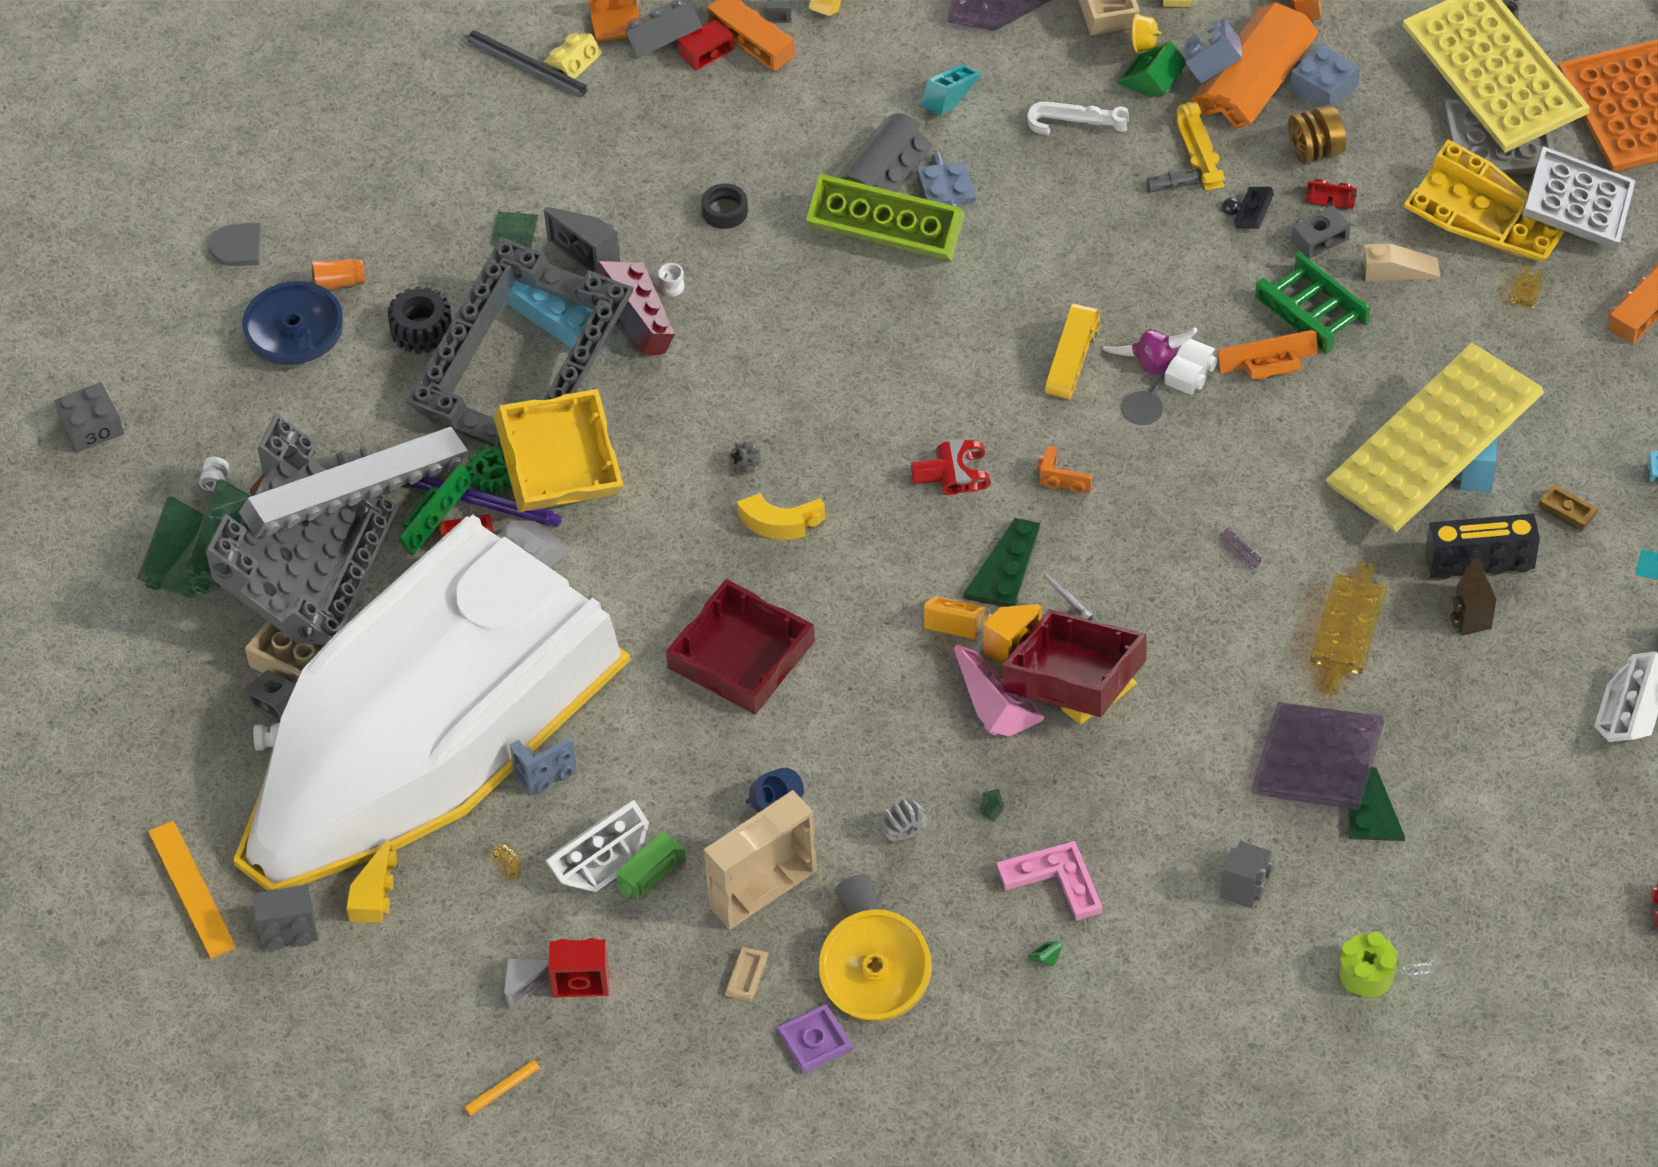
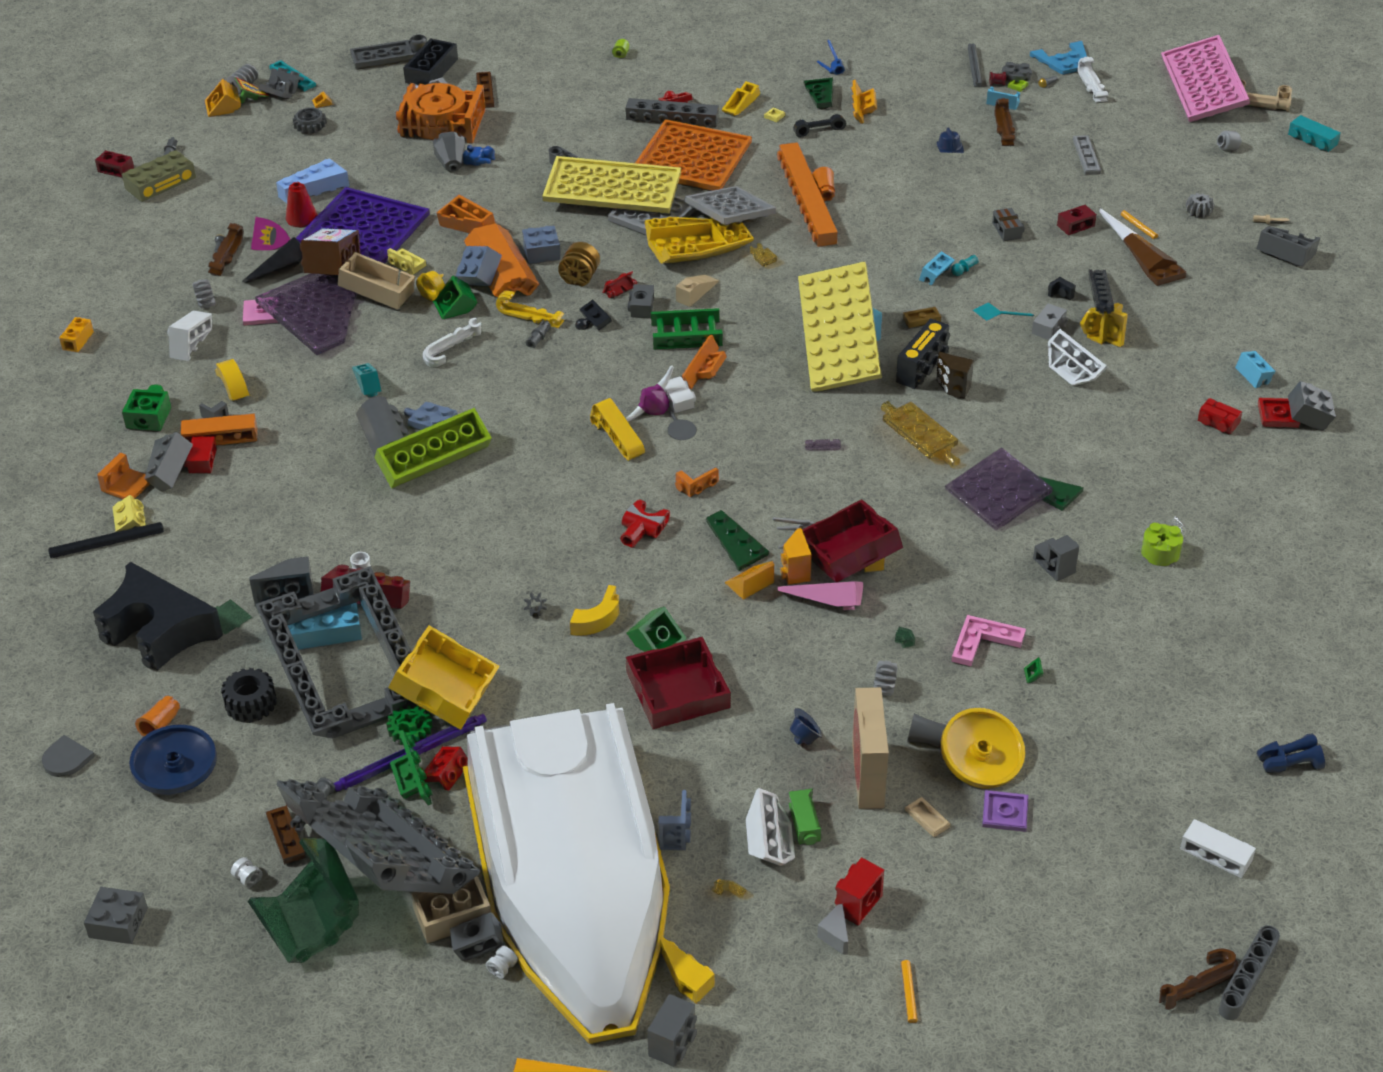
camera: 55 degrees left, 10 degrees down
(352, 482) = (364, 785): brick -> none
(457, 171) = (161, 611): none -> black piece
(729, 219) = (335, 522): black tyre -> none
(796, 585) = (656, 631): none -> green slope

